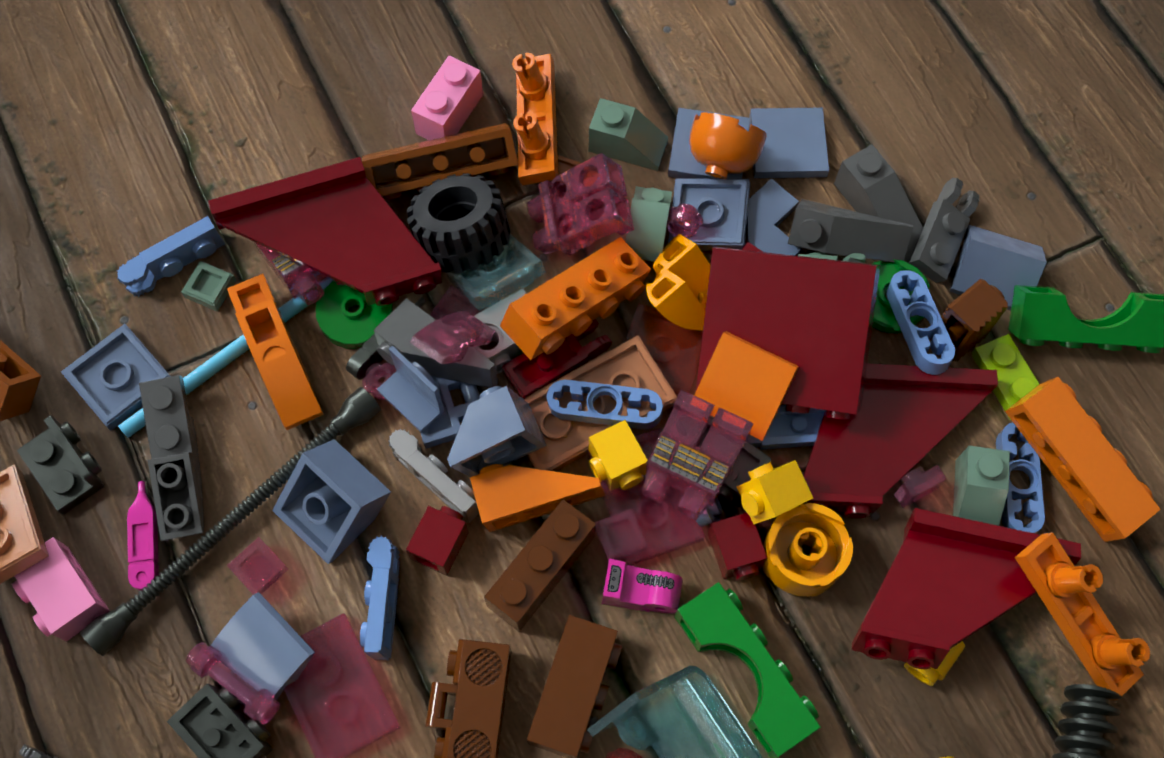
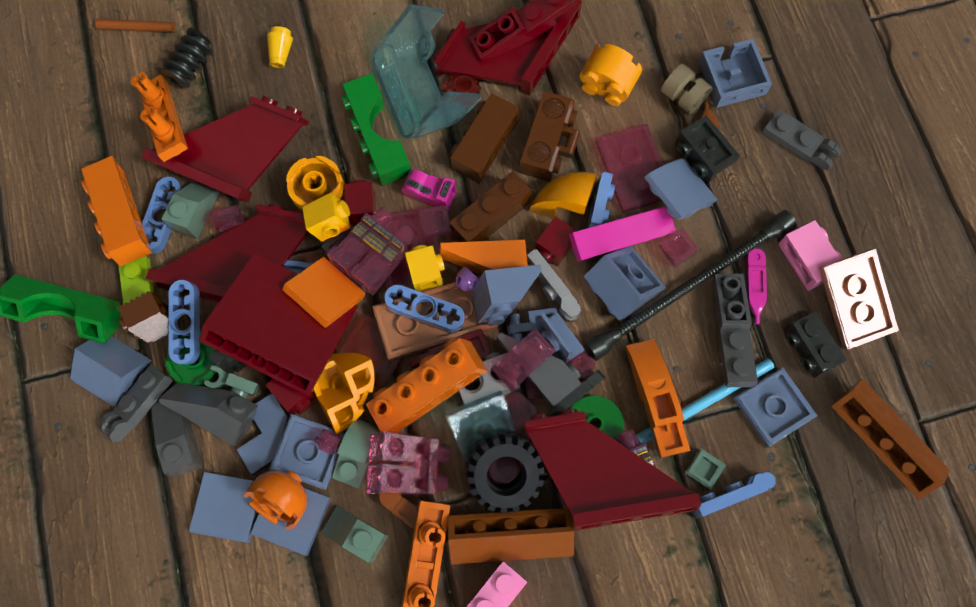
camera: 165 degrees left, 5 degrees up
(259, 704) = (681, 156): clear pink bar -> none
(341, 561) = (621, 233): none -> dark pink tile
(430, 613) = (565, 192): none -> light orange brick
(553, 456) = (466, 279): none -> medium lavender hinge

